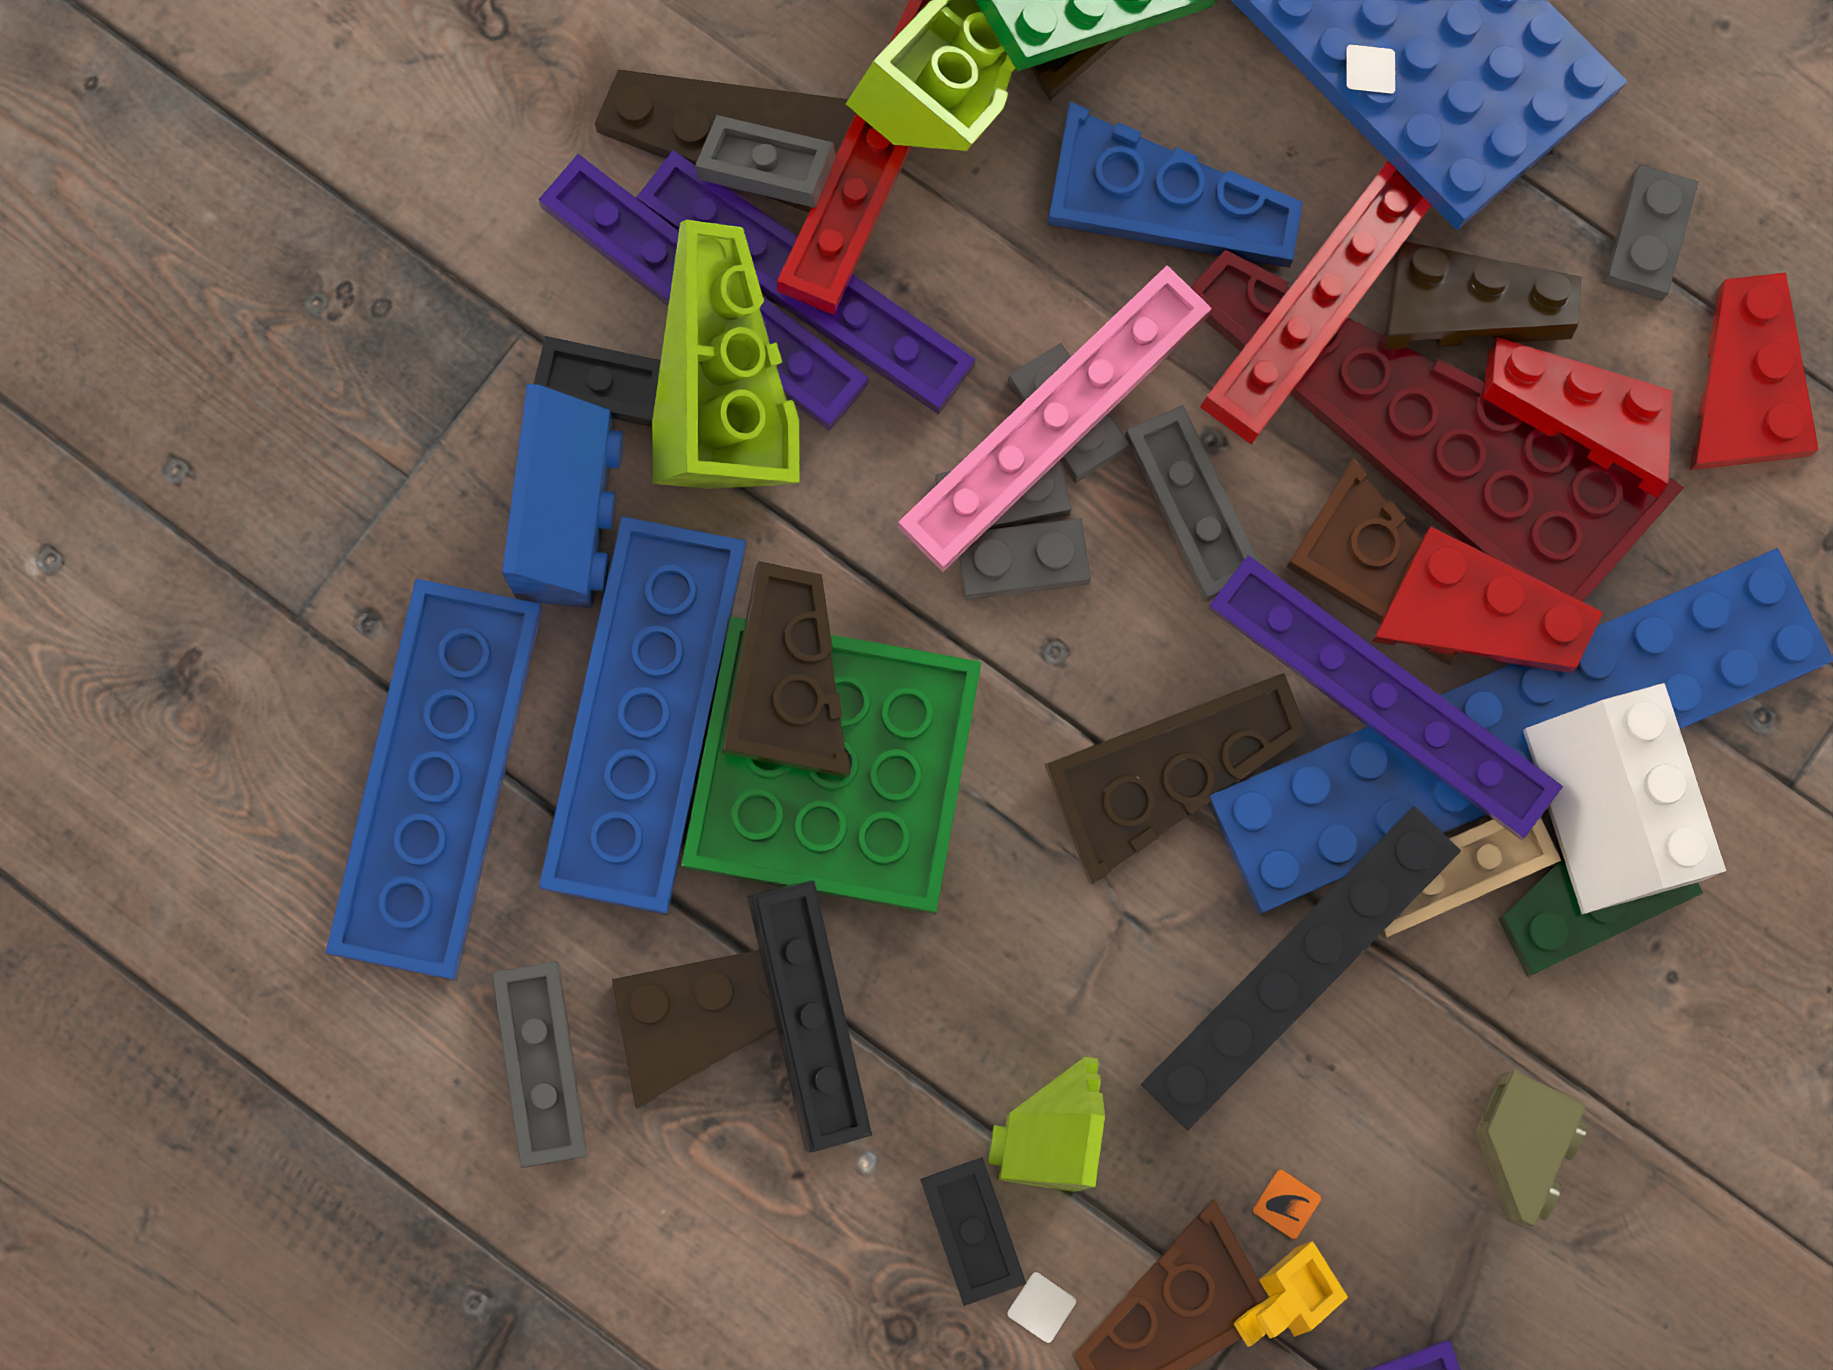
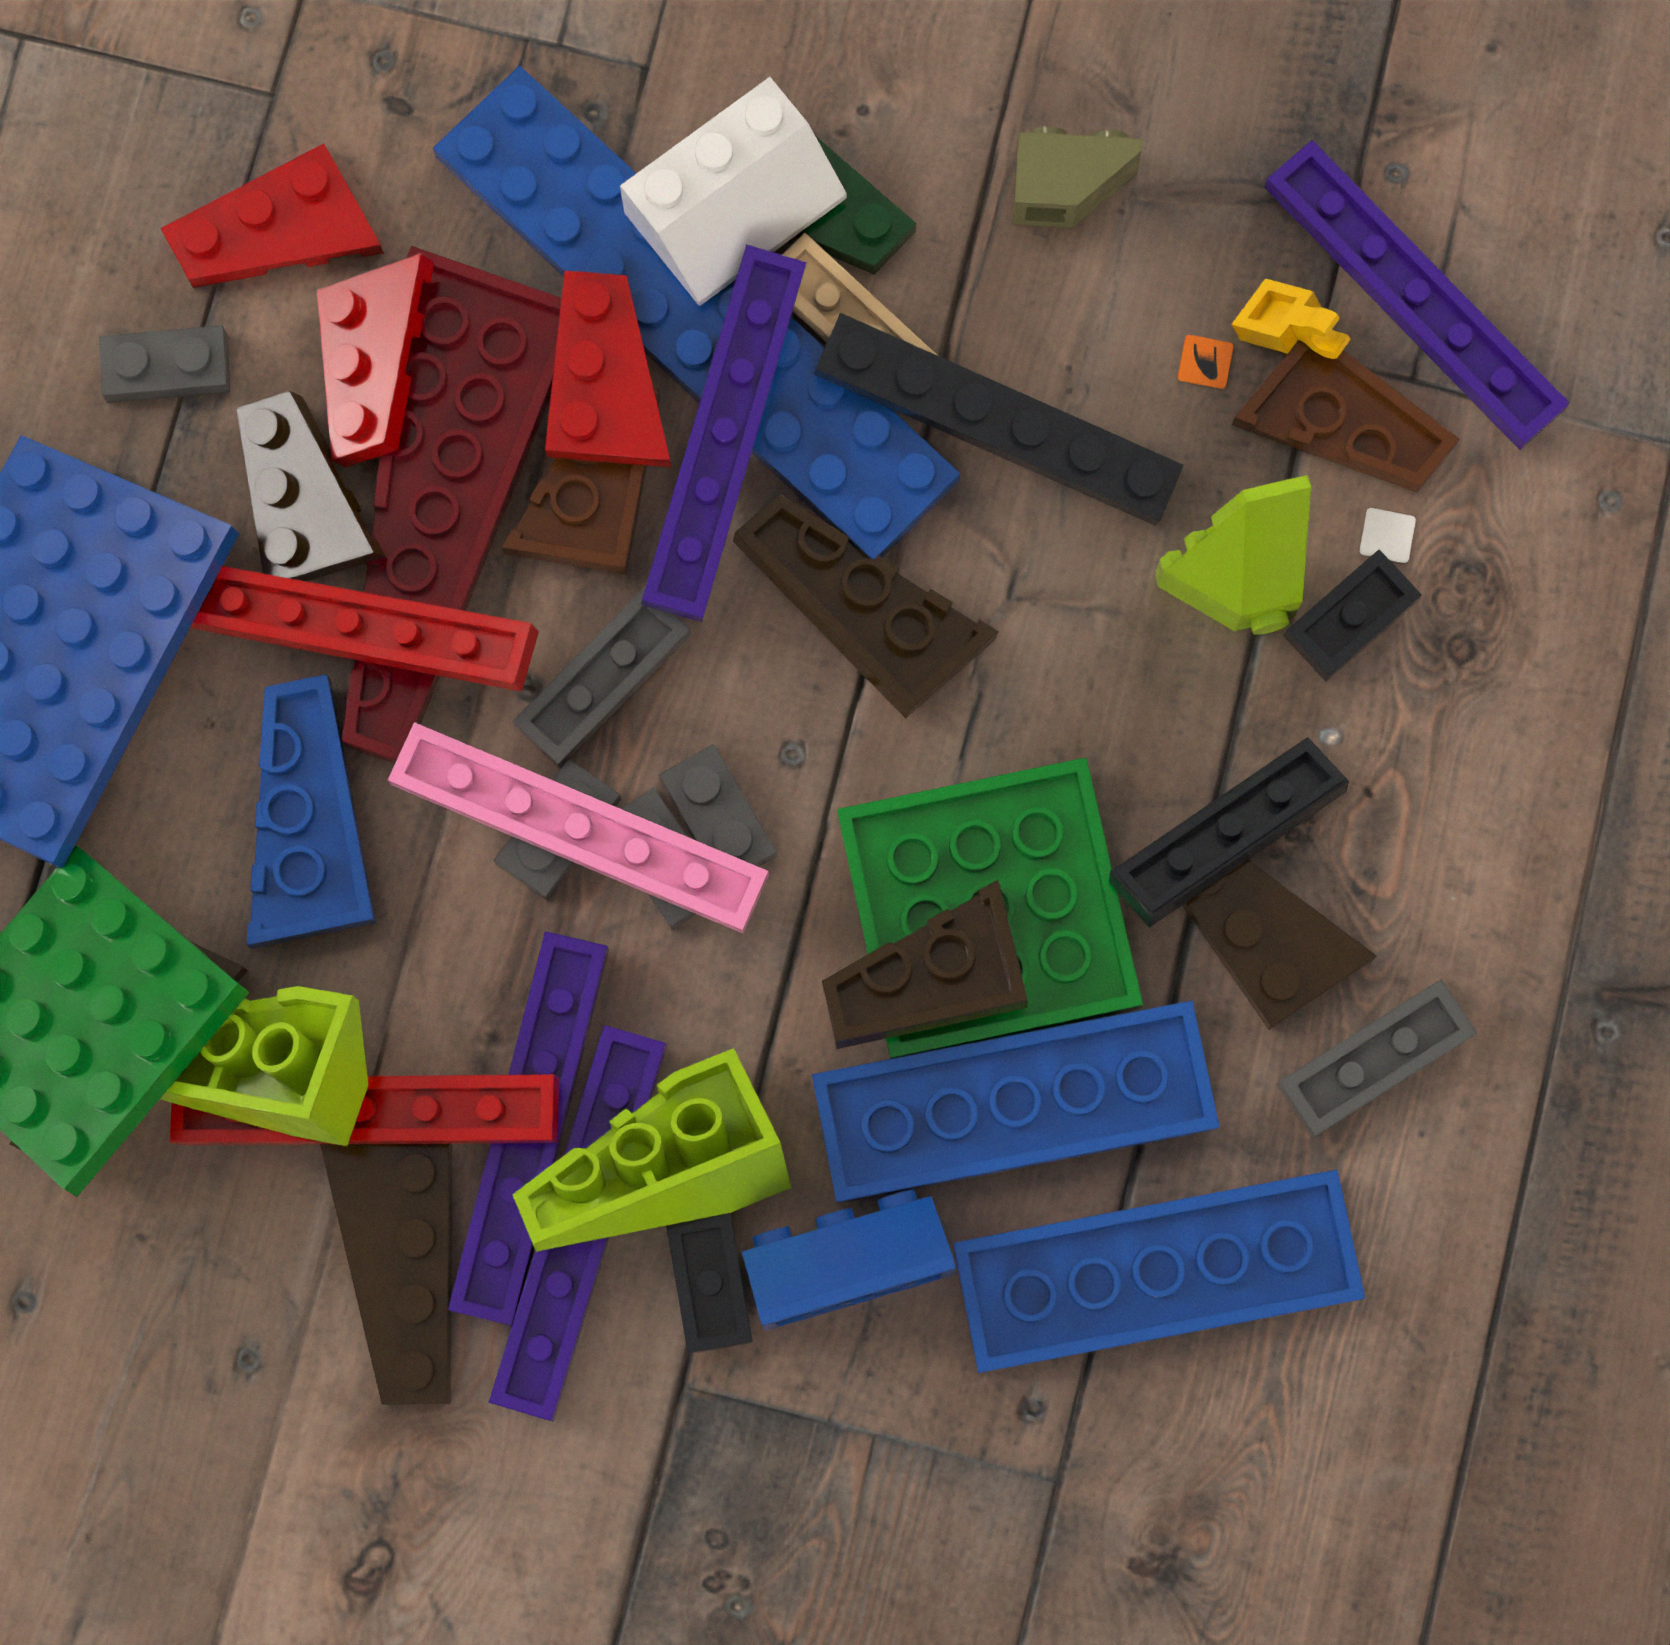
camera: 105 degrees left, 0 degrees up
(766, 161) = (431, 1204): dark grey plate -> none
(1370, 69) = (112, 664): white sticker -> none

